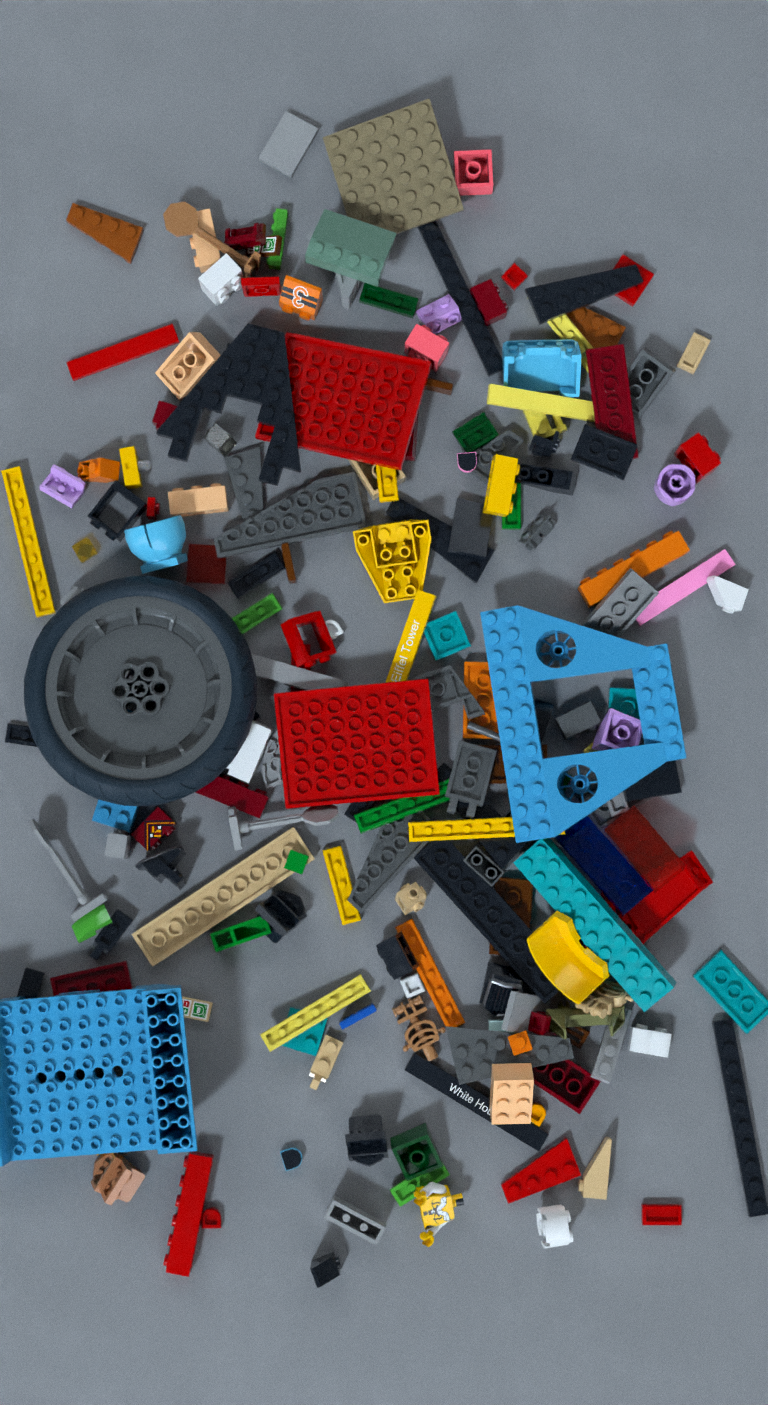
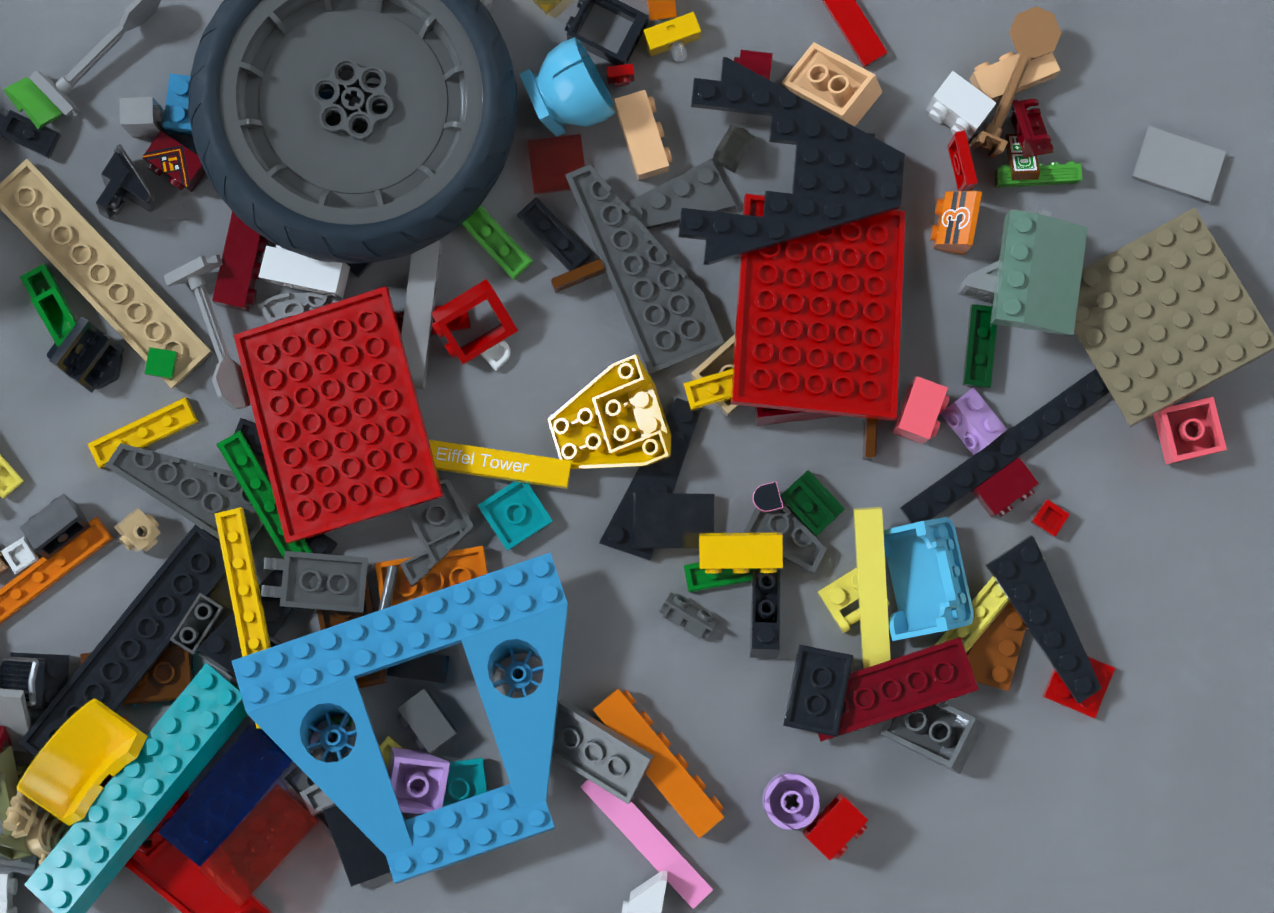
camera: 80 degrees right, 0 degrees up
(544, 447) = (808, 598): black bracket -> none
(693, 353) = (991, 796): tan tile -> none

